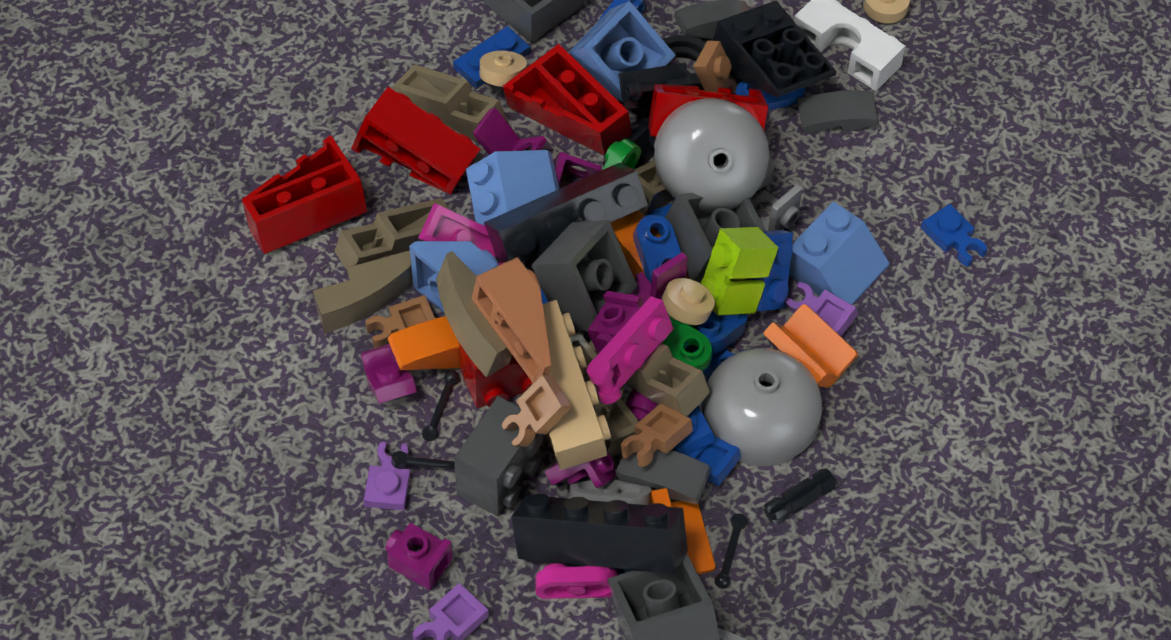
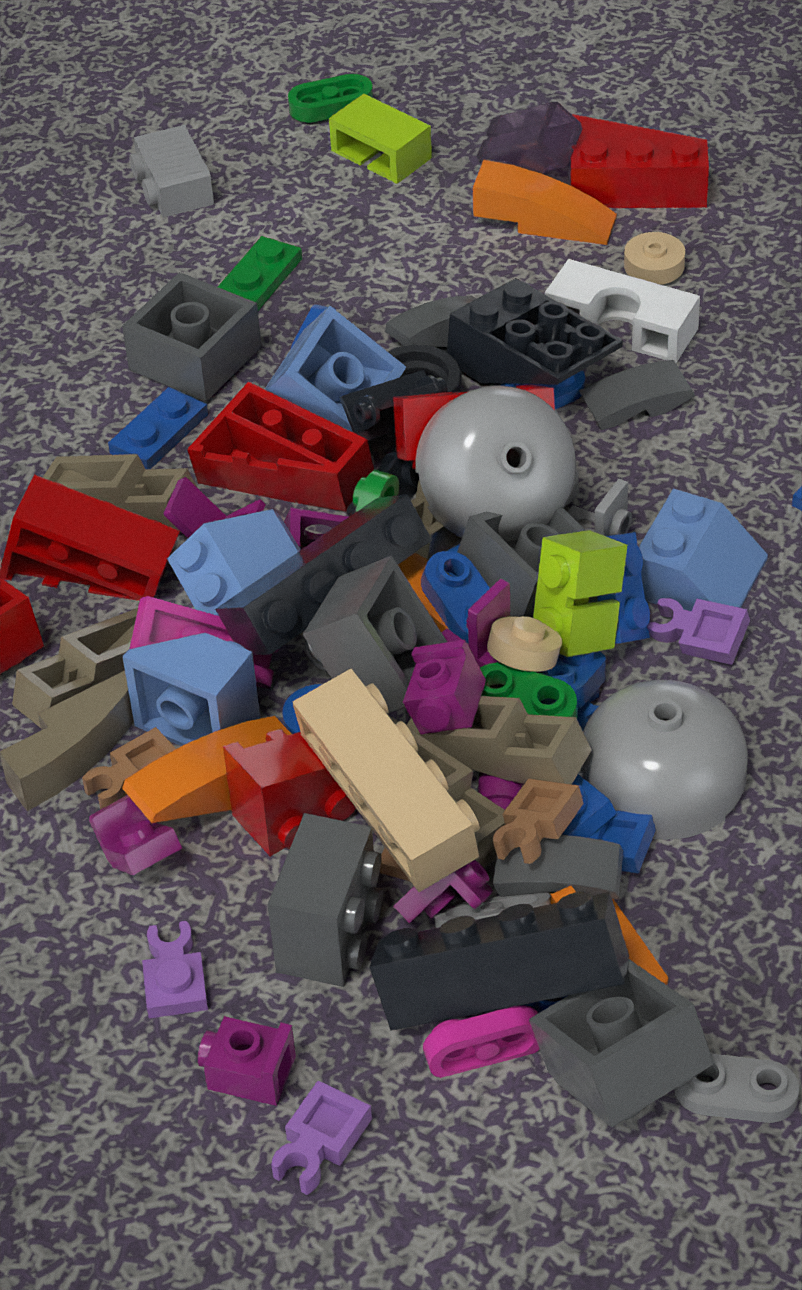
camera: 10 degrees left, 10 degrees down
(400, 459) = (185, 940): black hinge -> none
(430, 432) = (215, 901): black hinge -> none
(469, 325) = (242, 717): dark tan slope -> none
(501, 66) = (176, 431): tan wheel -> none
(514, 308) = (304, 691): nougat slope -> none
(541, 409) = (374, 805): medium nougat plate -> none
(629, 349) = (469, 710): dark pink plate -> none
(714, 68) = (460, 365): medium nougat plate -> none
(738, 522) = (680, 914): black hinge -> none
(799, 496) = (751, 860): black axle -> none
(813, 344) = (707, 663): orange panel -> none

